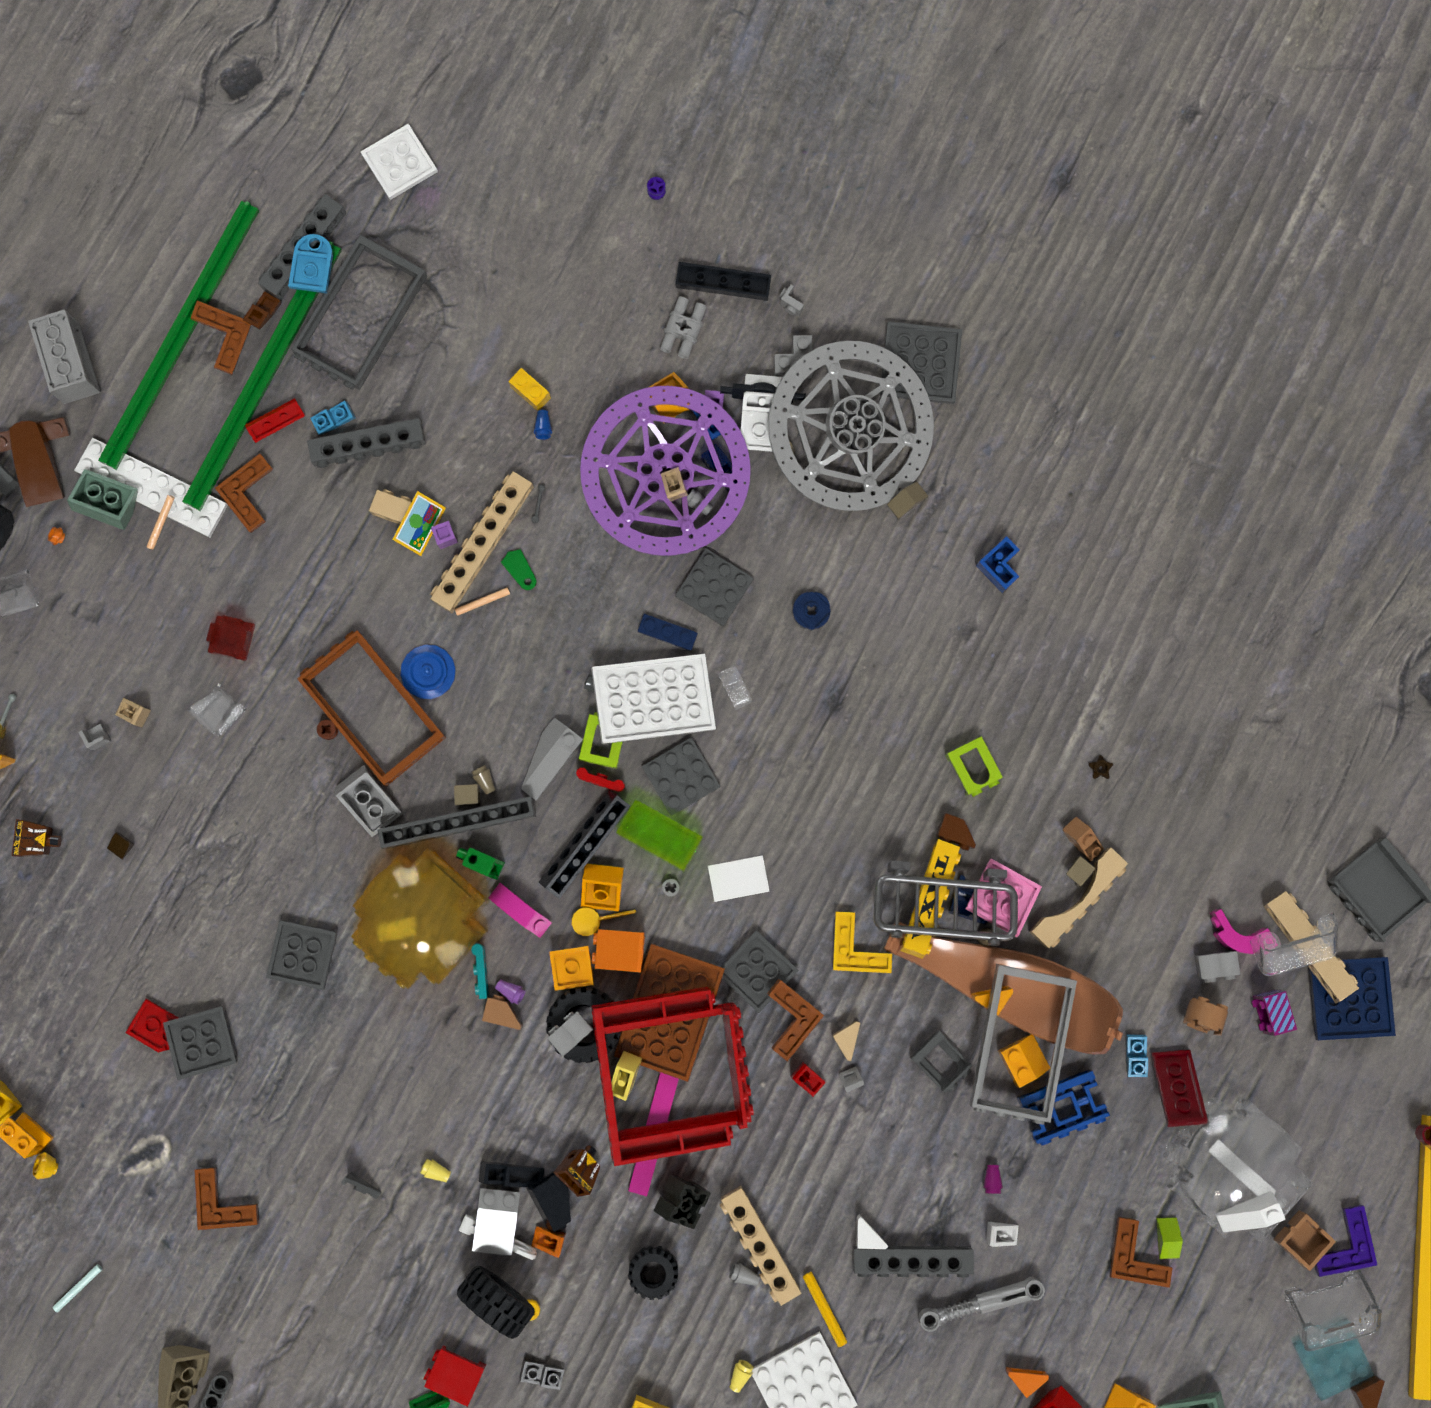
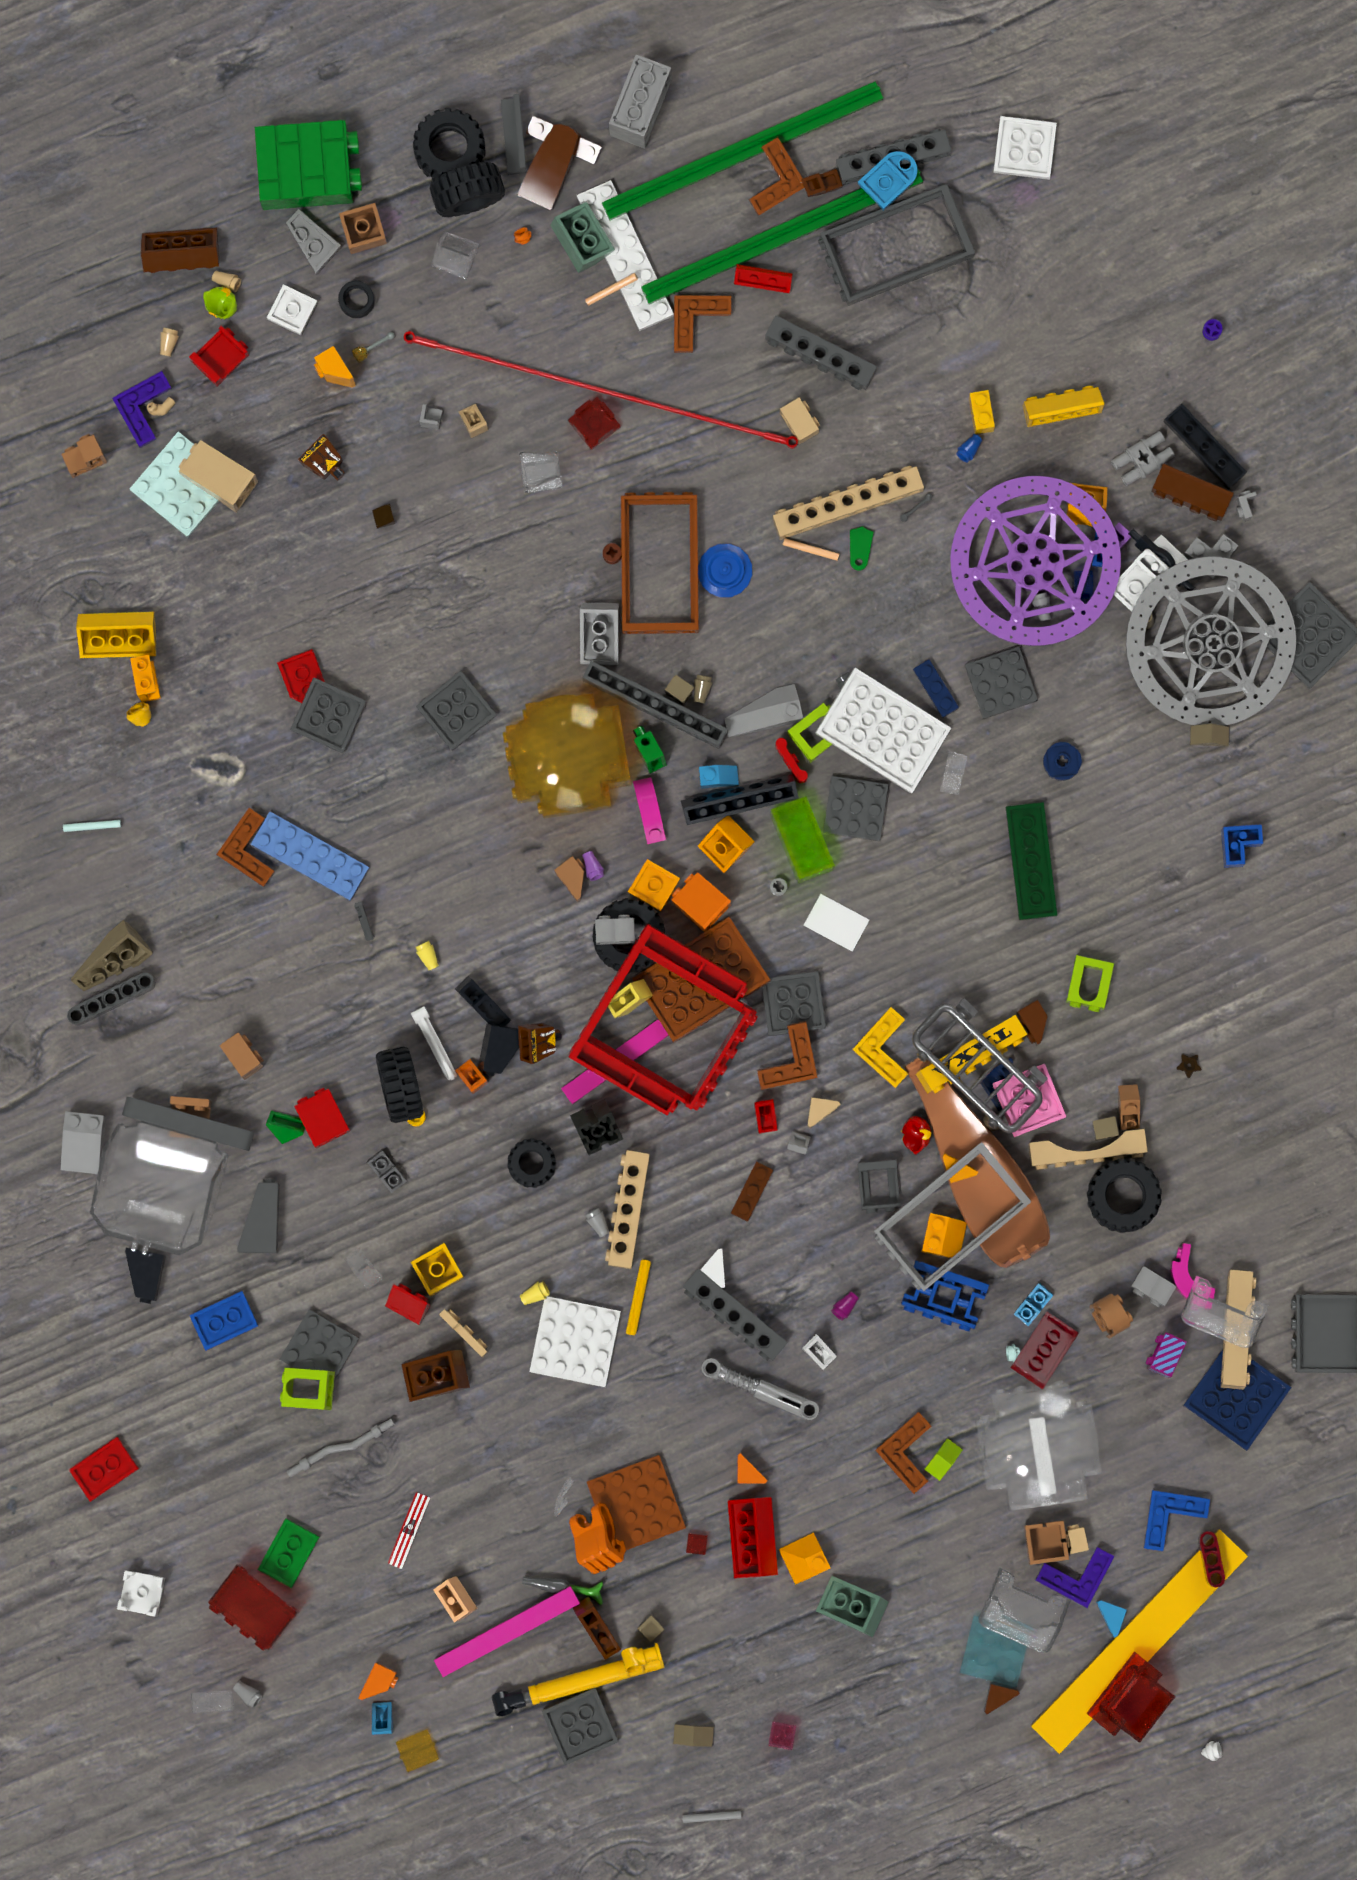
camera: 45 degrees right, 0 degrees up
(53, 676) = (767, 435): none -> red piece
(276, 1167) = (310, 856): none -> medium blue plate
(332, 418) = (809, 312): dark azure slope -> none
(348, 1380) = (241, 1055): none -> medium nougat brick
(416, 524) = (810, 449): sticker -> none
(444, 535) = (823, 474): medium lavender panel -> none
(480, 970) = (582, 832): teal plate -> none
(495, 1222) = (444, 1028): slope -> none
(552, 838) = (718, 776): none -> dark azure slope
(587, 921) = (694, 860): yellow piece -> none
(589, 336) = (1063, 406): none -> yellow slope
(674, 484) = (1033, 577): tan slope -> none
(742, 323) = (1192, 493): none -> reddish brown slope
(845, 1148) = (751, 1191): none -> reddish brown plate
(851, 707) = (1031, 861): none -> dark green plate
(938, 997) = (916, 1134): none -> red hair
(1152, 1108) = (1012, 1352): none -> light aqua plate
(1163, 907) = (1150, 1195): none -> black tyre
(1251, 1214) = (1018, 1477): white slope -> none
(1324, 1217) = (1076, 1539): none -> tan window
(1366, 1132) = (1164, 1503): none -> blue plate
(1402, 1253) = (1112, 1615): none -> dark azure slope

